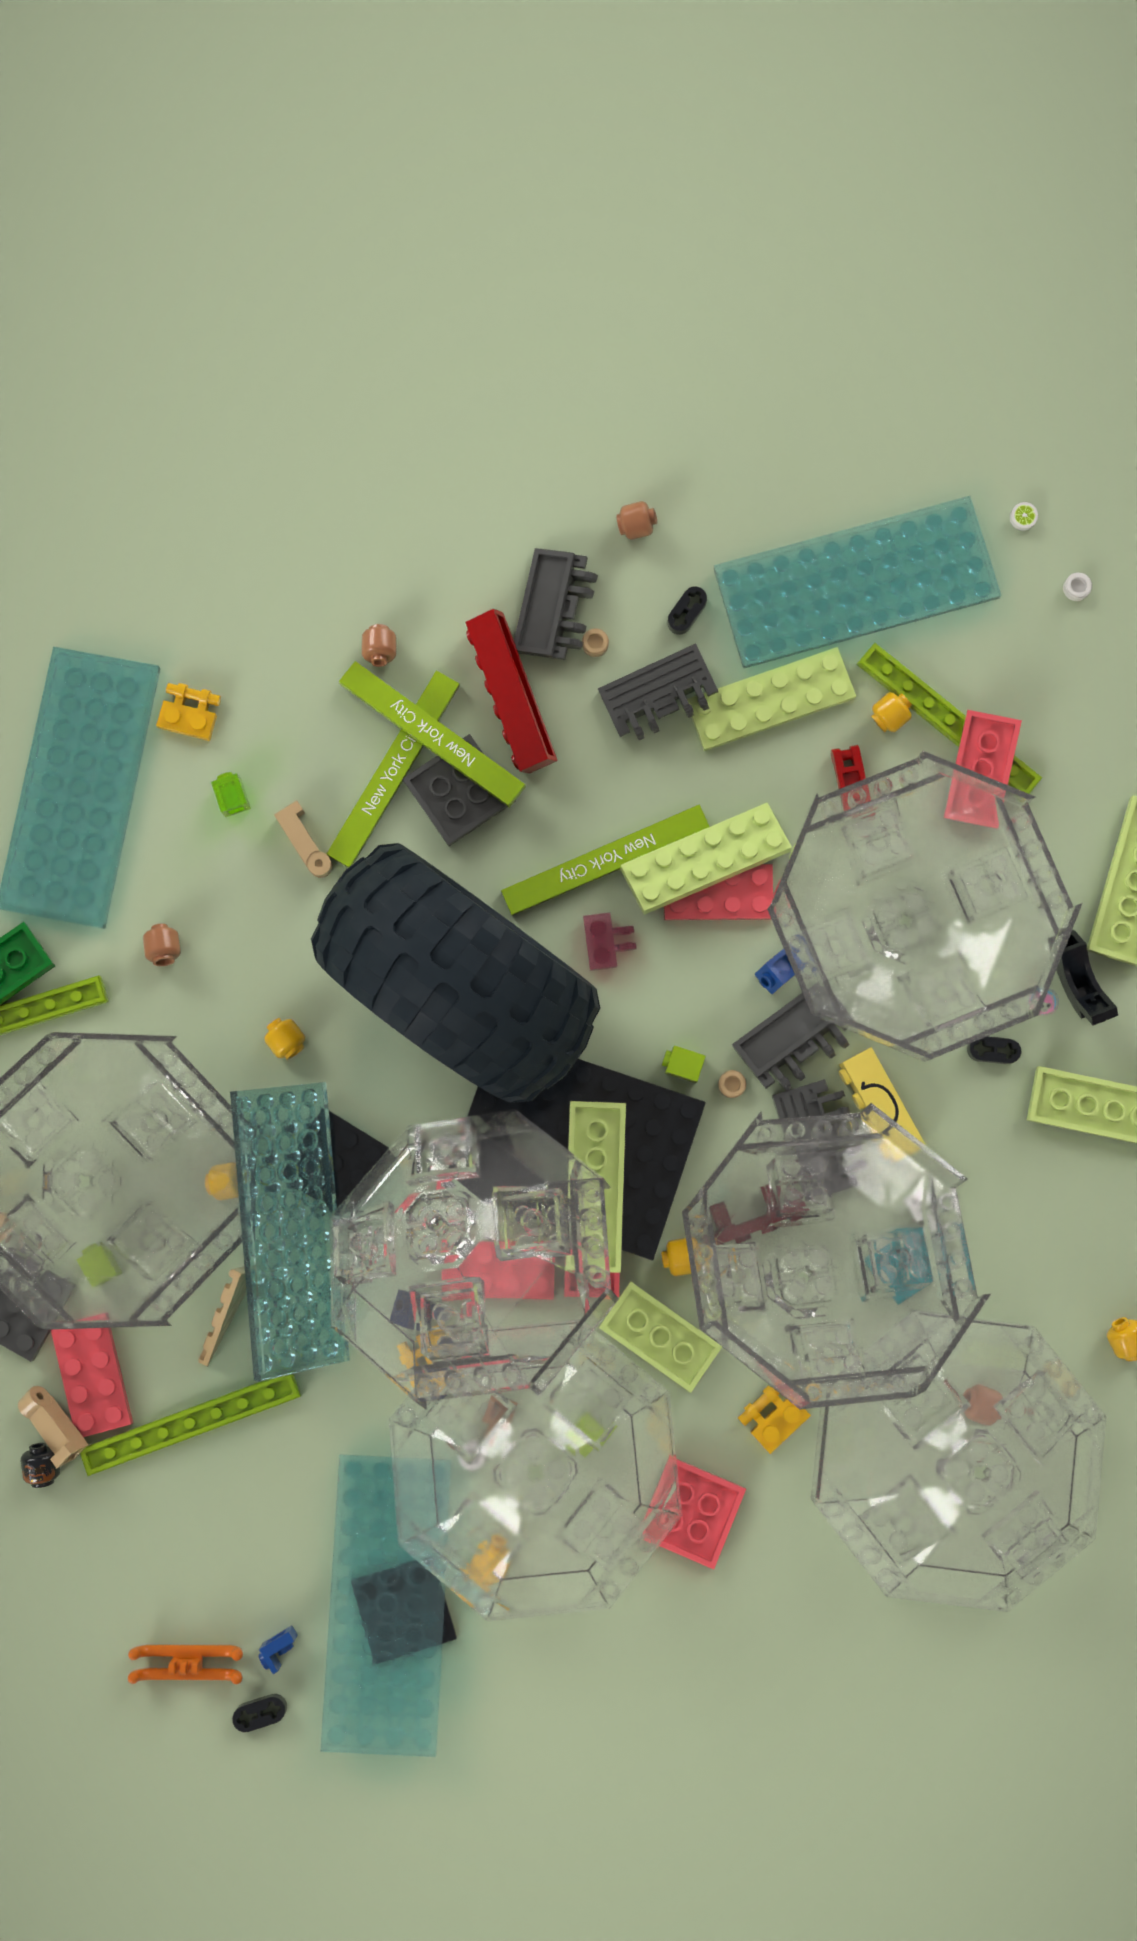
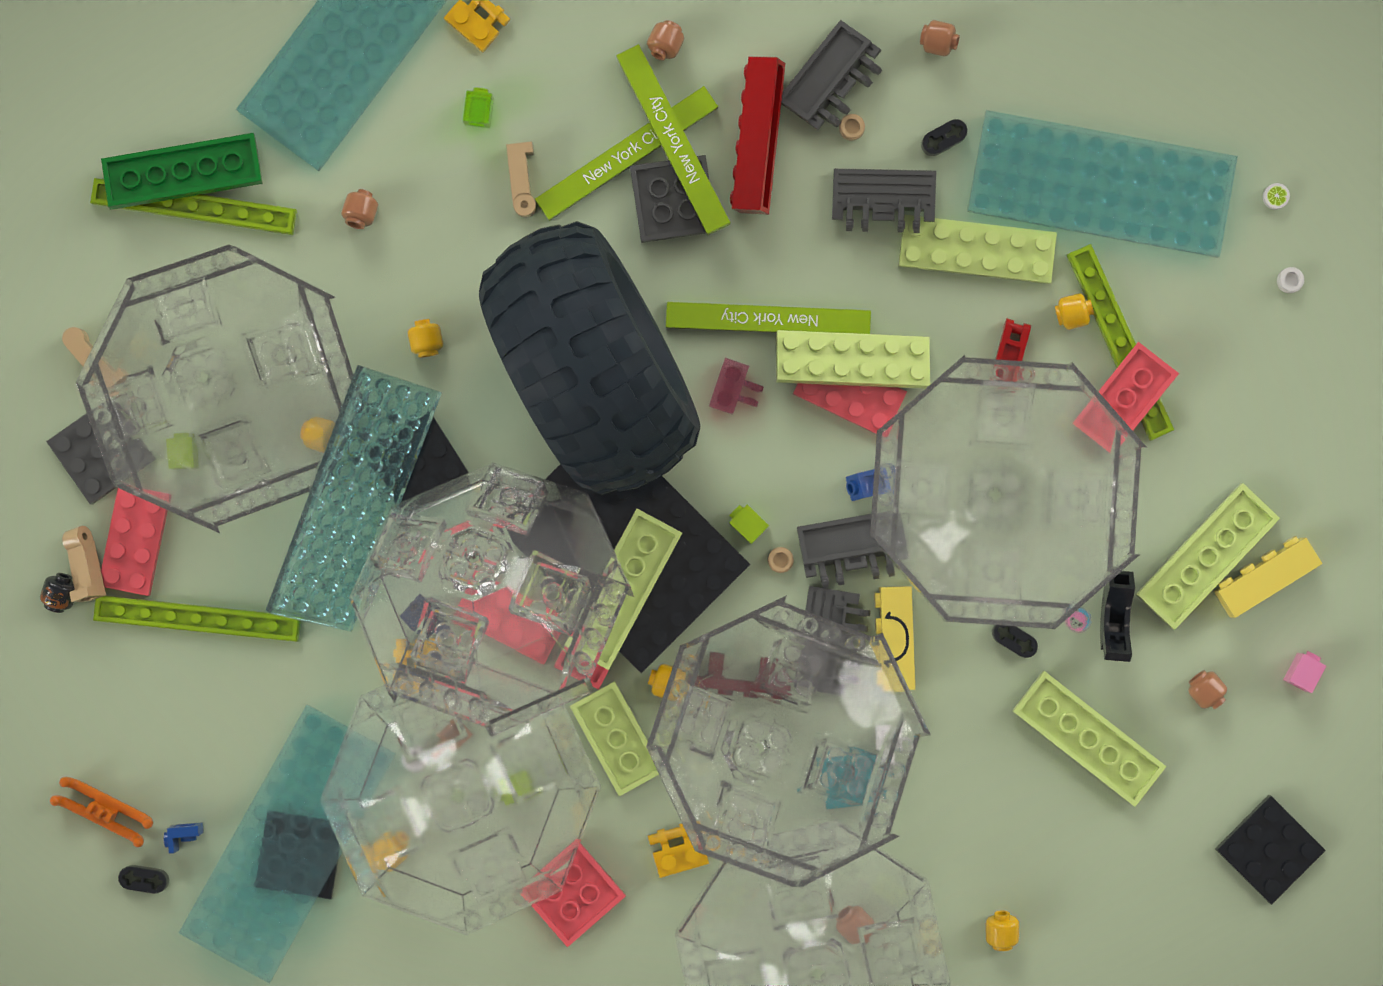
camera: 25 degrees right, 5 degrees up
(231, 1298) = (277, 533): tan tile -> none

